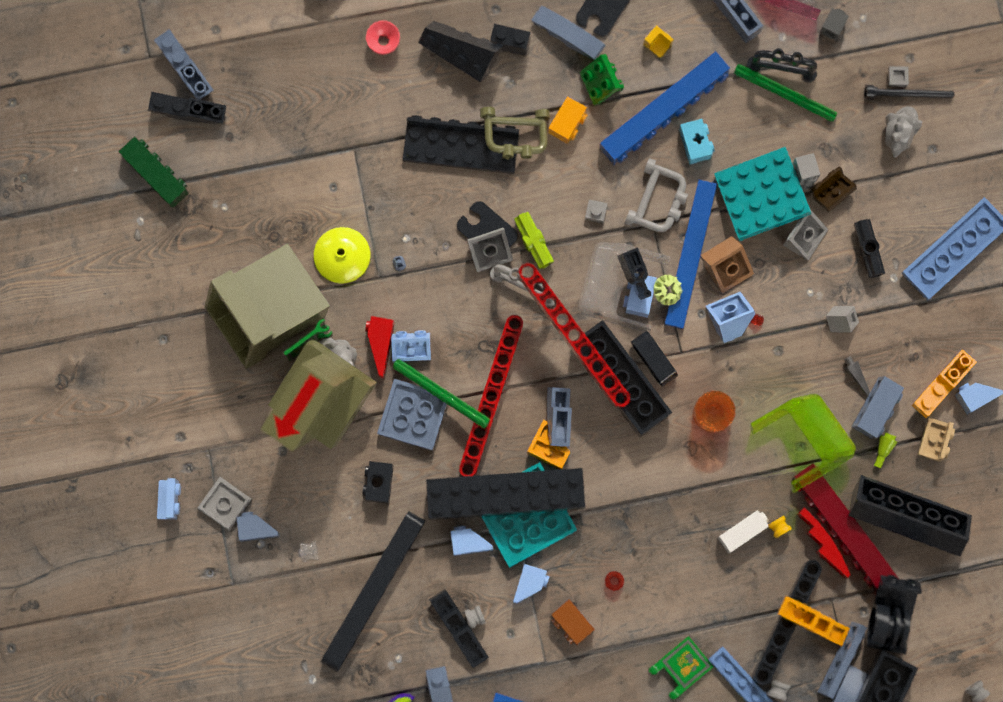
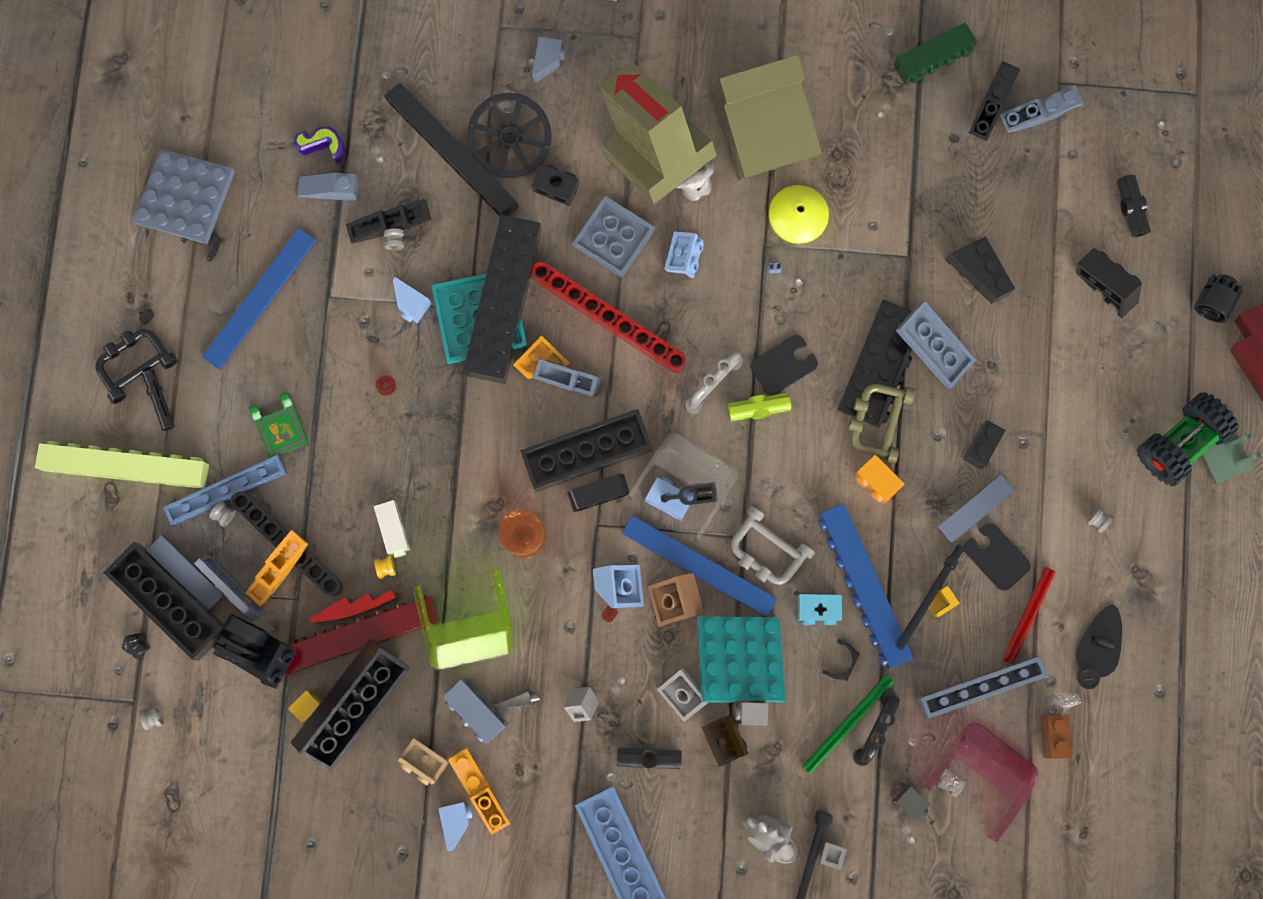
camera: 105 degrees right, 0 degrees up
(224, 503) = (581, 37): light grey tile -> none
(316, 334) = (720, 159): green flag -> none
(348, 534) = (542, 117): none -> black wheel
(350, 78) = (983, 269): none -> black wedge
(380, 29) = (1024, 306): coral piece -> none
(380, 335) = (703, 223): red slope -> none
(434, 101) = (935, 345): none -> sand blue plate
(441, 393) = (625, 266): green axle -> none
(461, 49) = (985, 389): black wedge -> none
(467, 542) = (469, 253): light blue slope -> none
(489, 249) = (760, 358): light grey slope -> none
(572, 622) = (357, 330): dark orange brick -> none
(582, 339) = (630, 405): red beam -> none
(596, 211) = (773, 481): light grey plate -> none
(601, 79) = (914, 525): green plate -> none
(622, 42) = (949, 565): none -> black bar
(660, 290) = (675, 528): yellowish green gear -> none
(744, 104) = (854, 654): none -> black cap
(886, 445) = (434, 707): lime cone -> none
(923, 556) = (305, 706): none -> yellow panel

